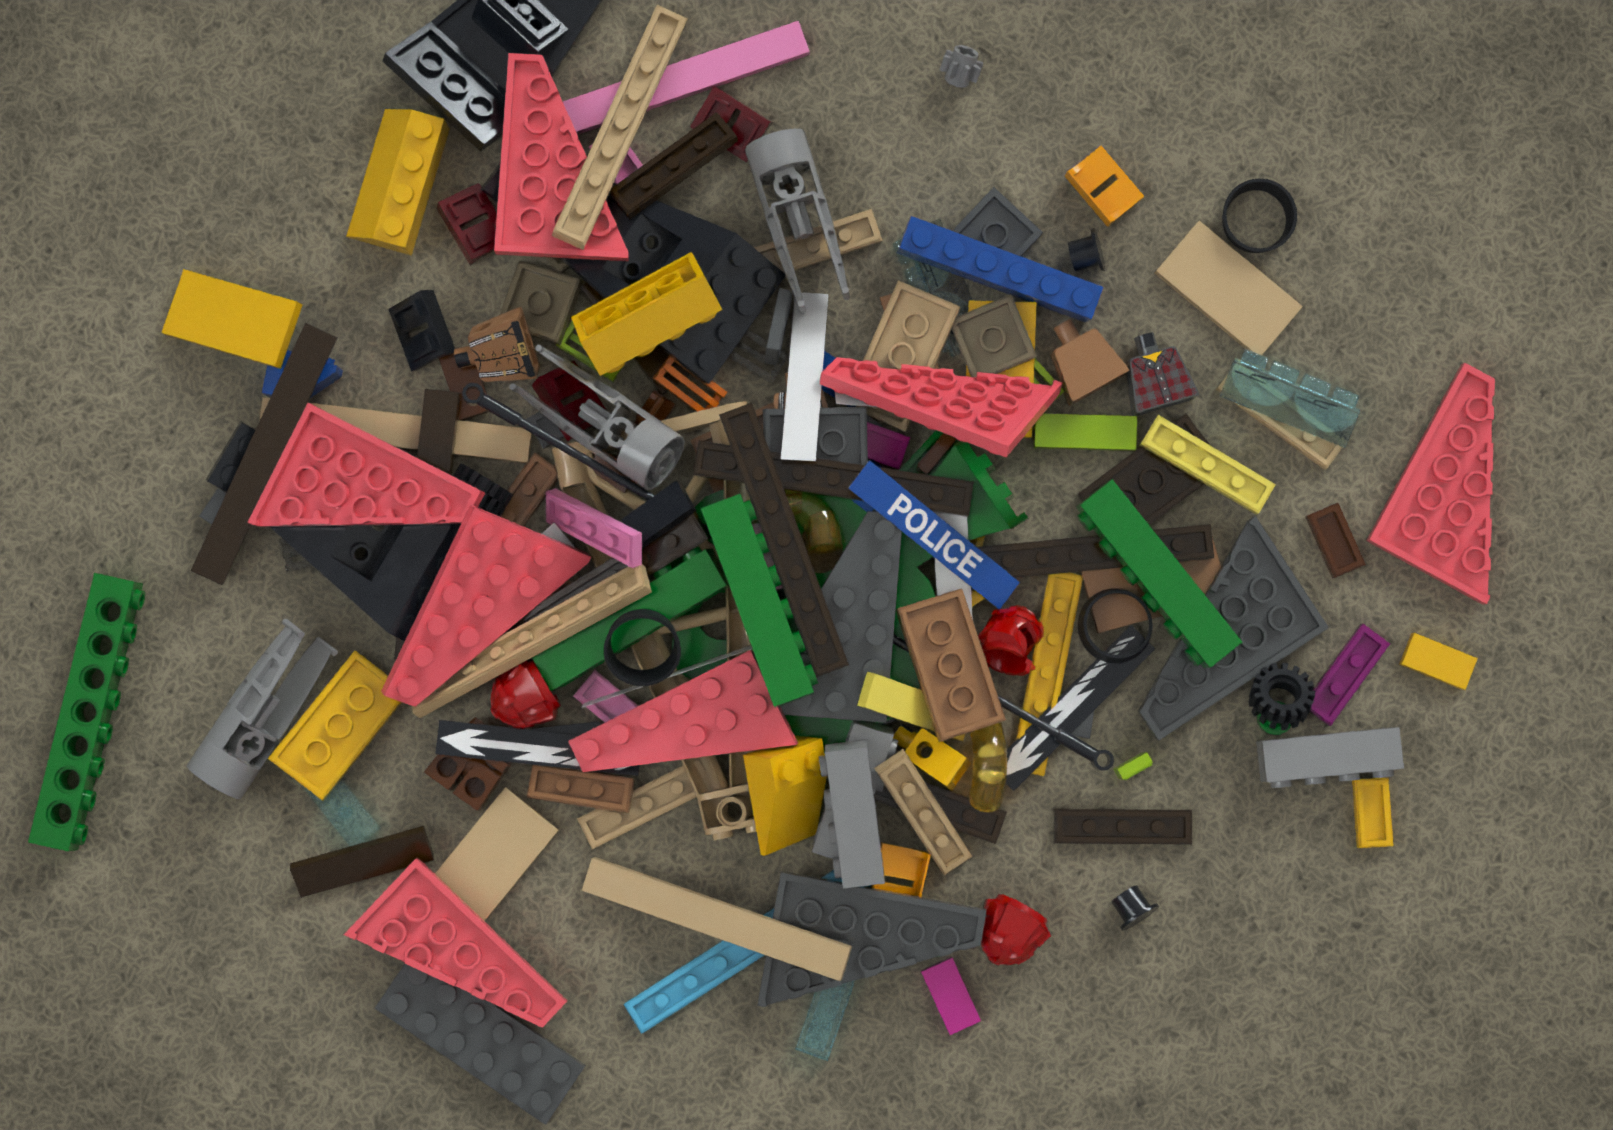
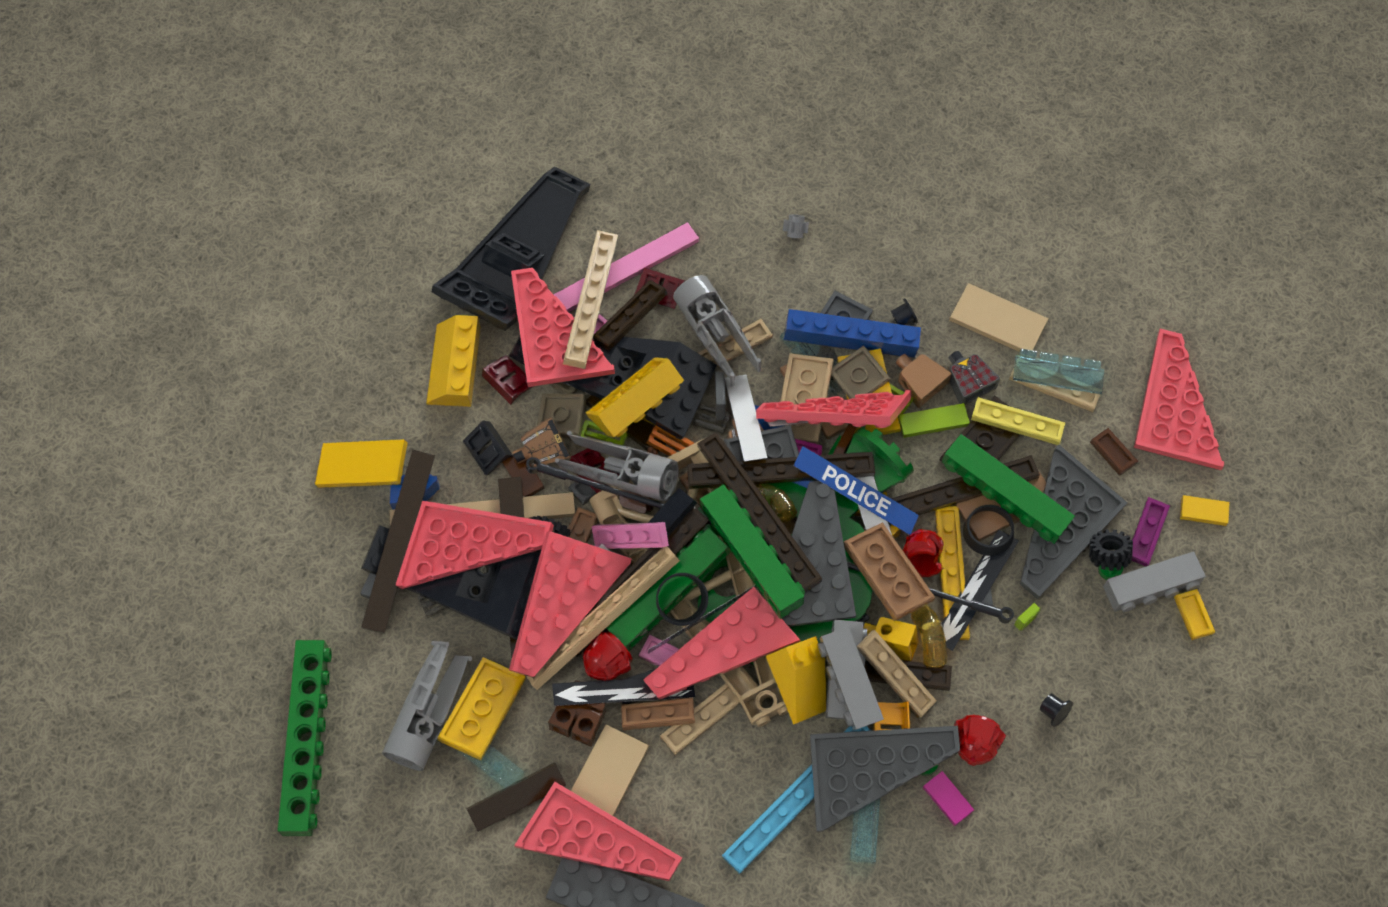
camera: 10 degrees left, 20 degrees down
(717, 918) = (774, 776): tan tile -> none
(896, 701) = (861, 600): light yellow tile -> none
(1094, 172) = (895, 269): light orange piece -> none
(1122, 826) = (1032, 659): dark brown tile -> none
(1280, 194) = (1008, 256): black tyre -> none

